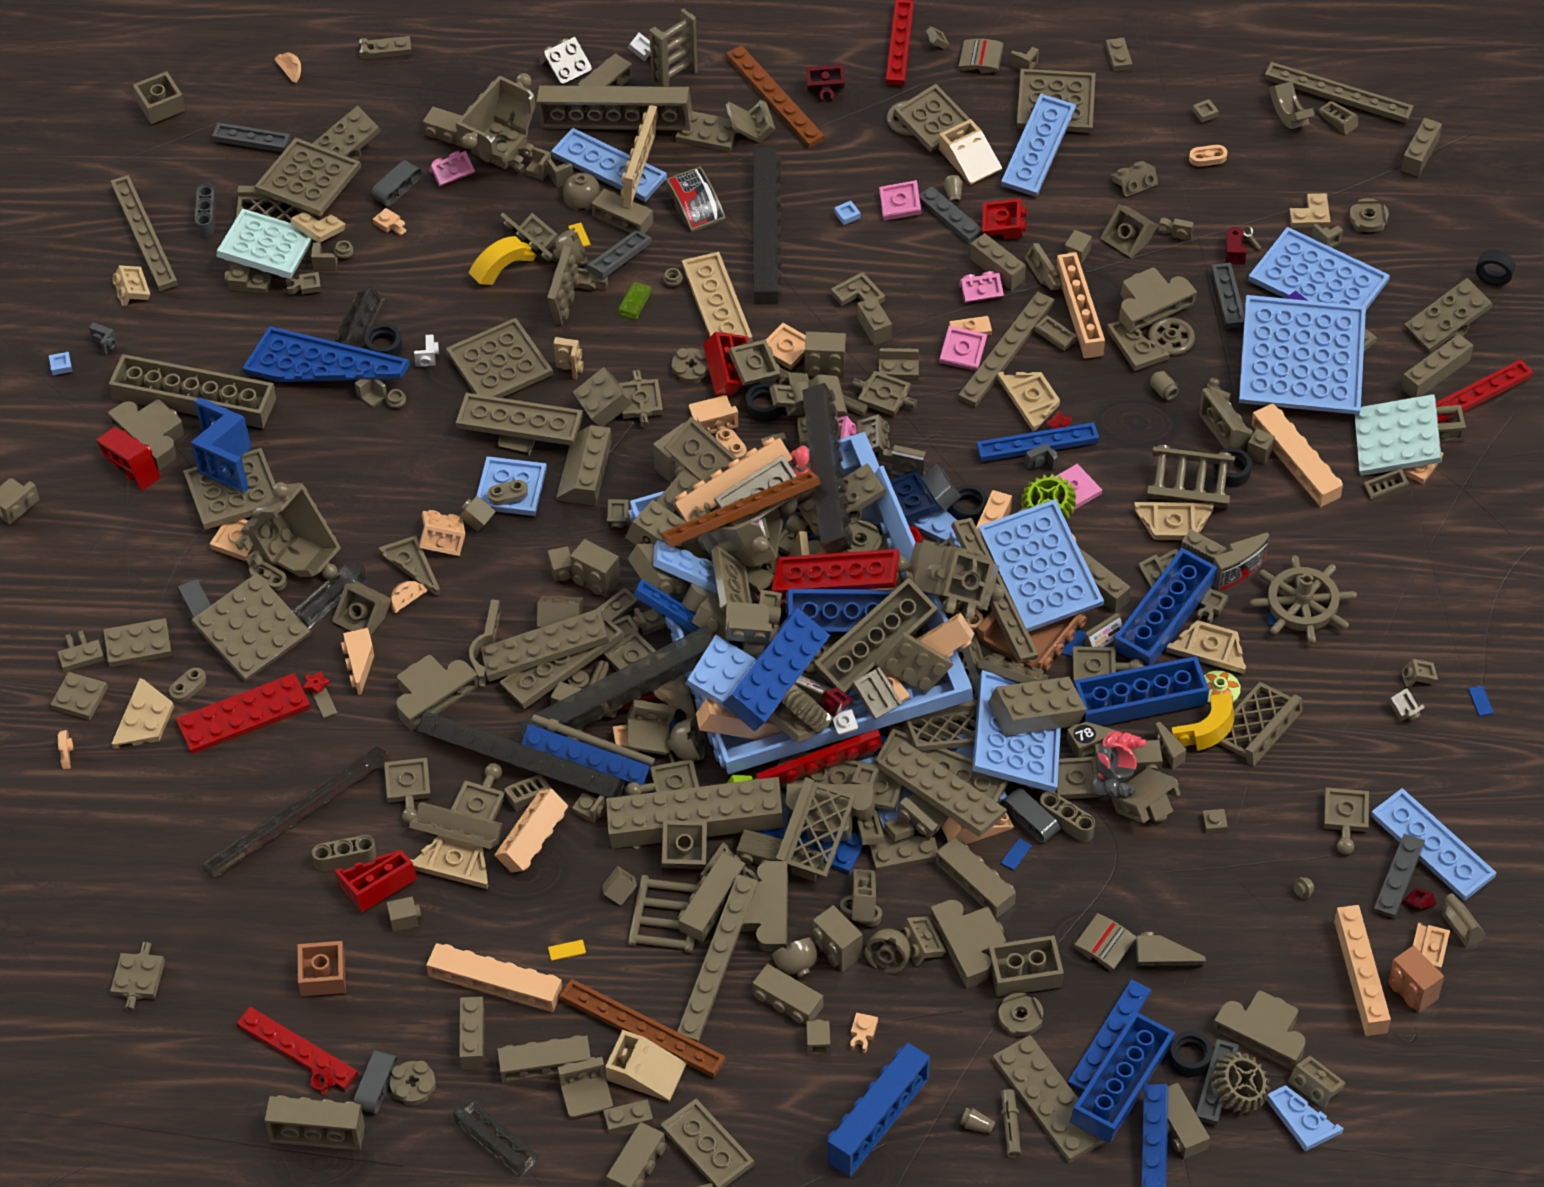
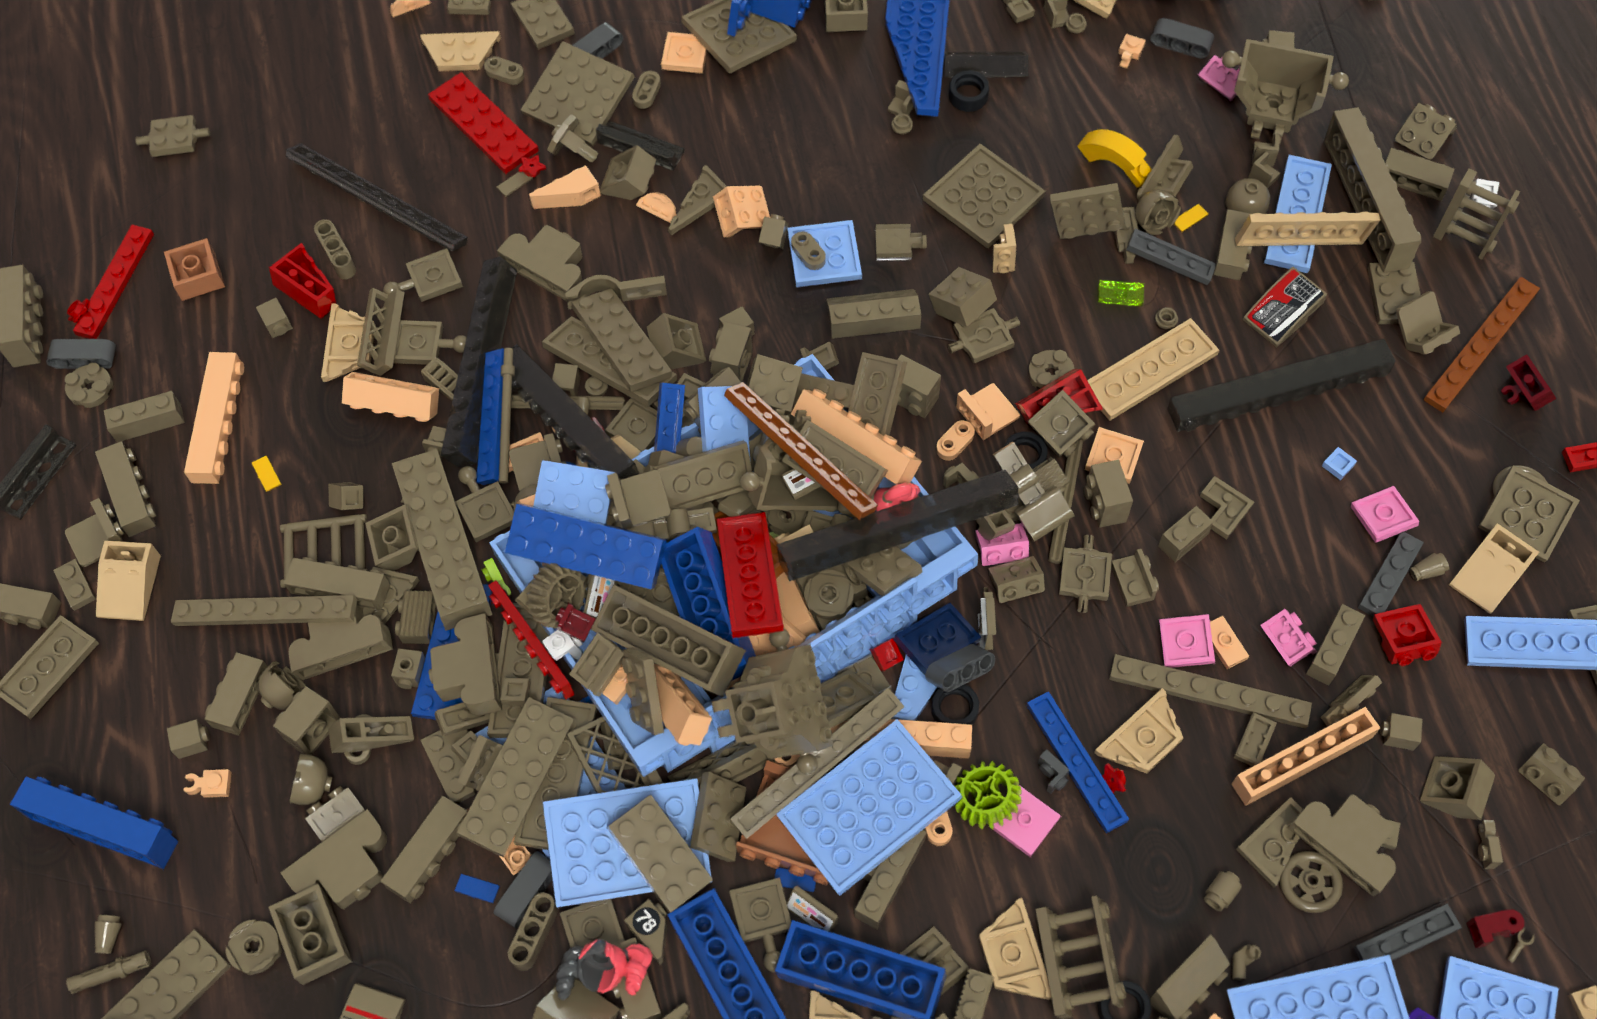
camera: 75 degrees right, 10 degrees up
(290, 534) = (681, 88): dark tan piece -> none
(305, 640) = (564, 135): none -> dark tan piece
(427, 356) = (970, 132): white bracket -> none
(519, 419) = (906, 232): dark tan plate -> none
(627, 1019) = (176, 568): dark orange plate -> none
(798, 820) = (424, 636): dark tan fence -> none

